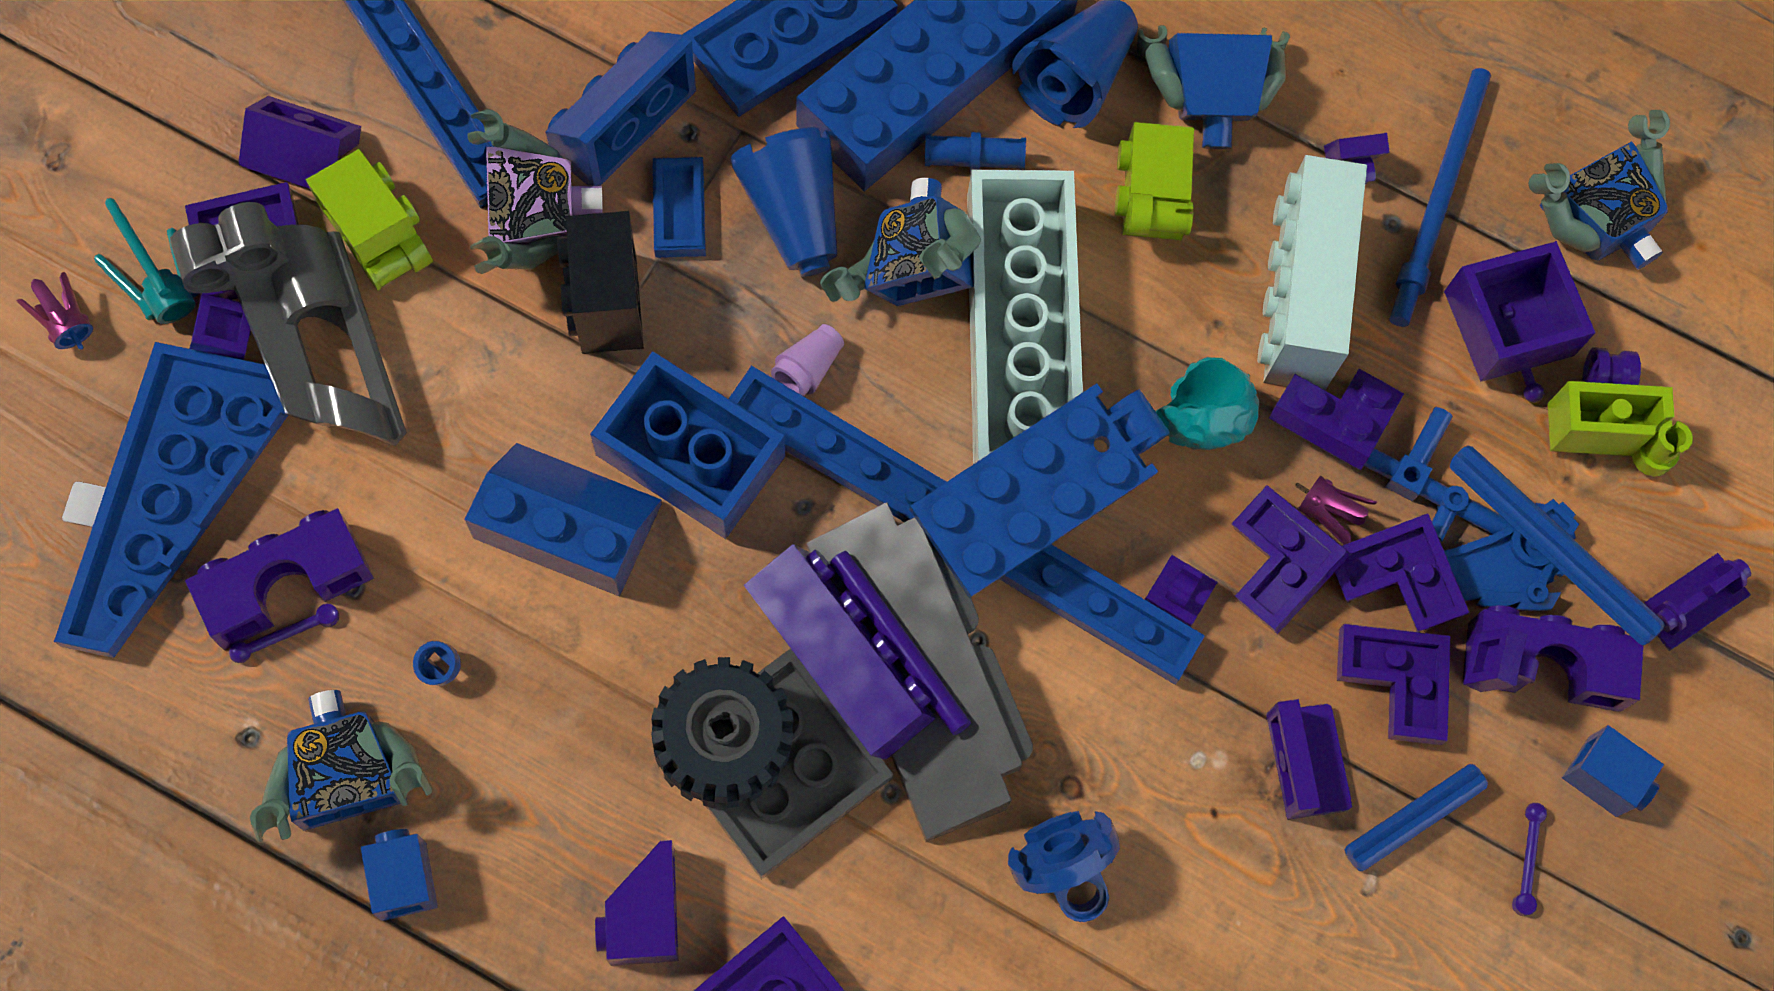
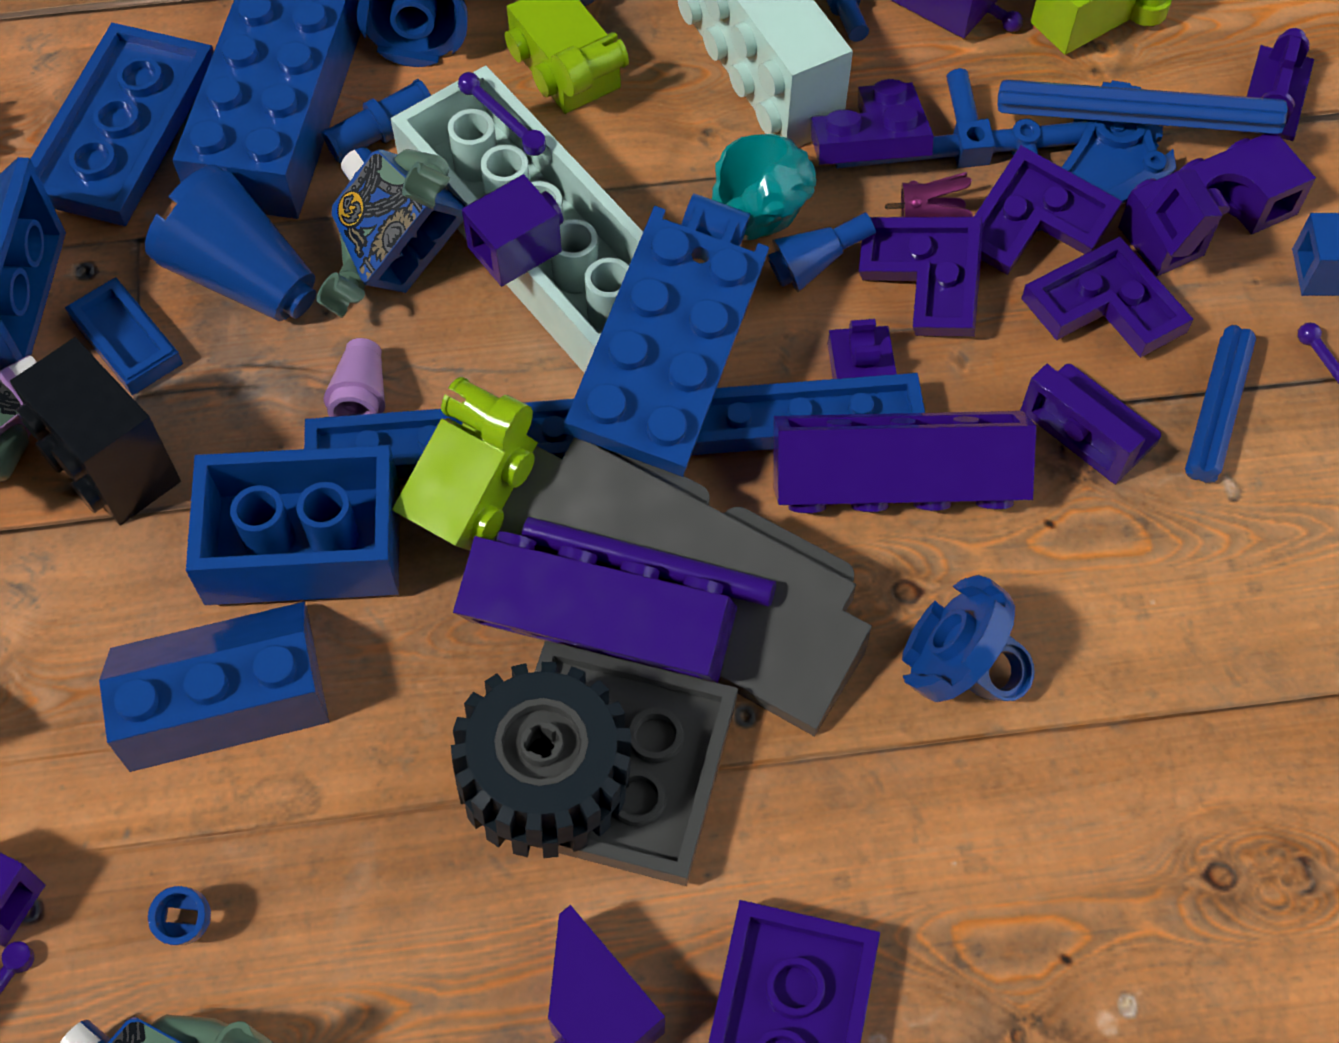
camera: 30 degrees left, 10 degrees down
(825, 490) = (470, 466): none -> lime hinge
(985, 331) = (513, 229): none -> dark purple brick
(1057, 262) = (532, 140): none -> dark purple hinge
(1137, 694) = (903, 460): none -> dark purple brick
(1203, 485) = (807, 254): none -> blue cone

